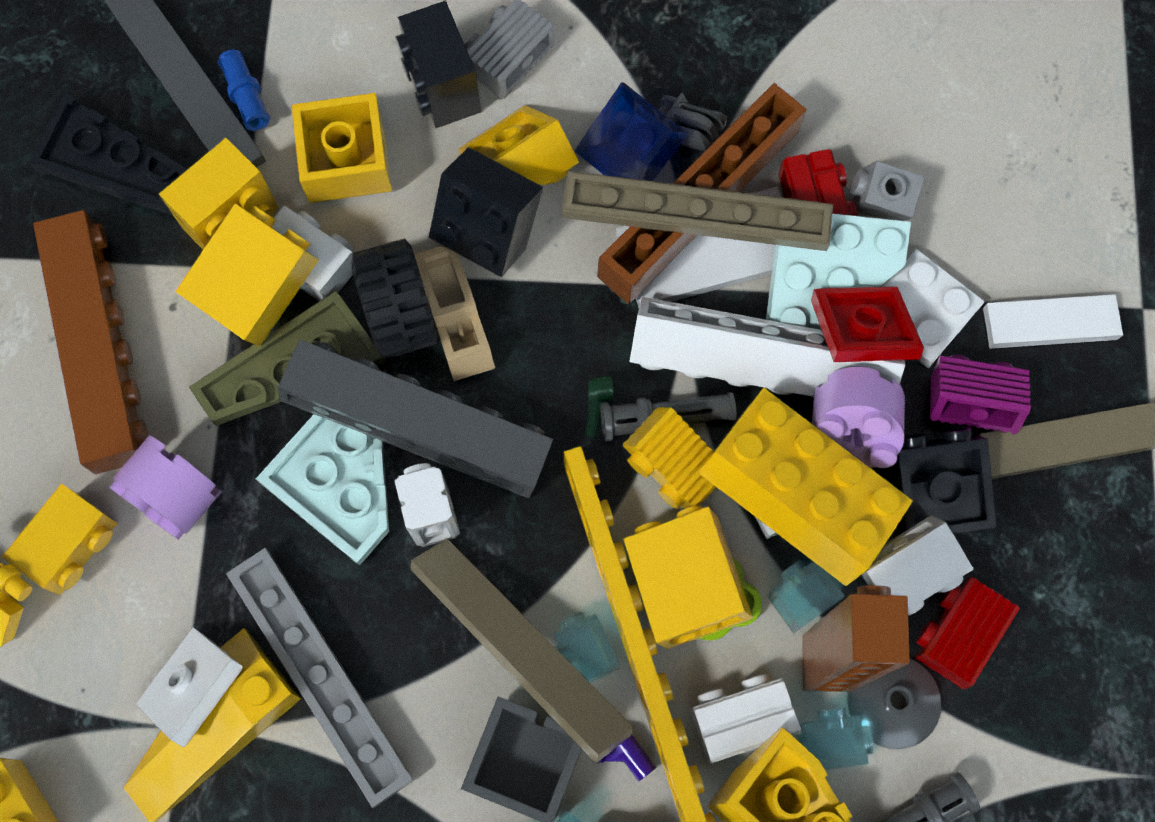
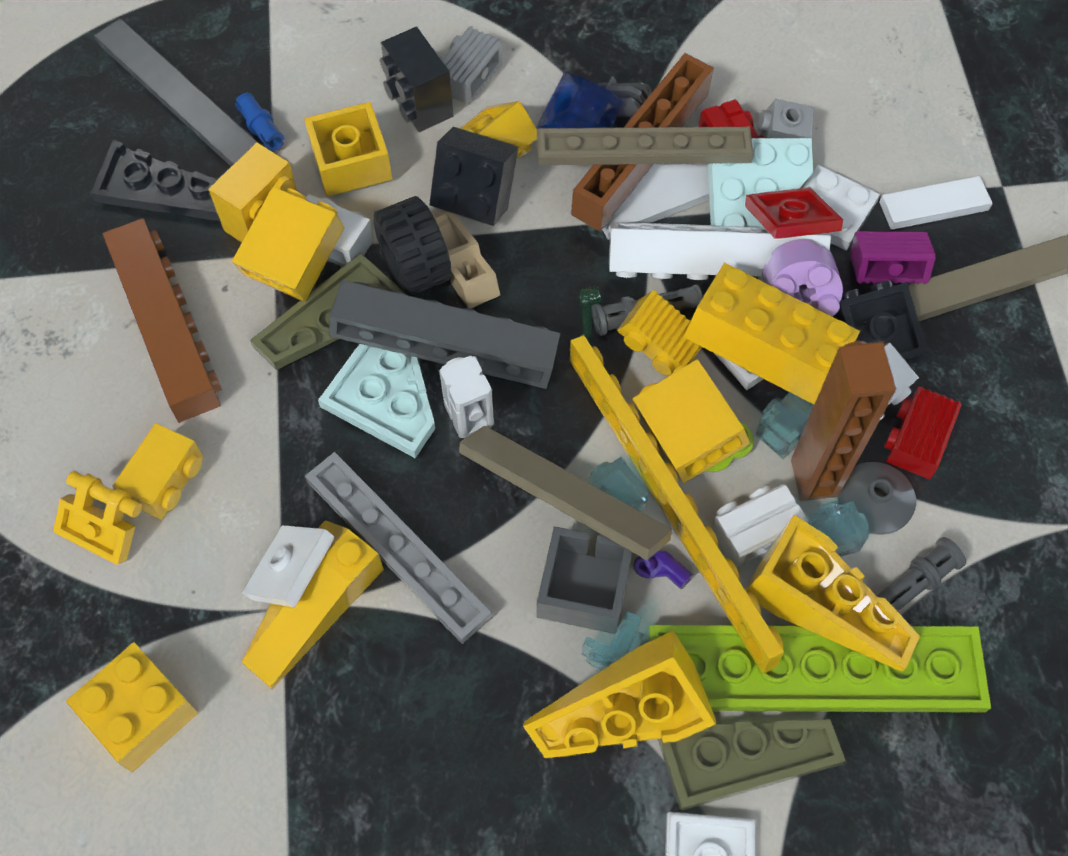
camera: 10 degrees left, 10 degrees down
(165, 487) = (244, 413): lavender brick -> none

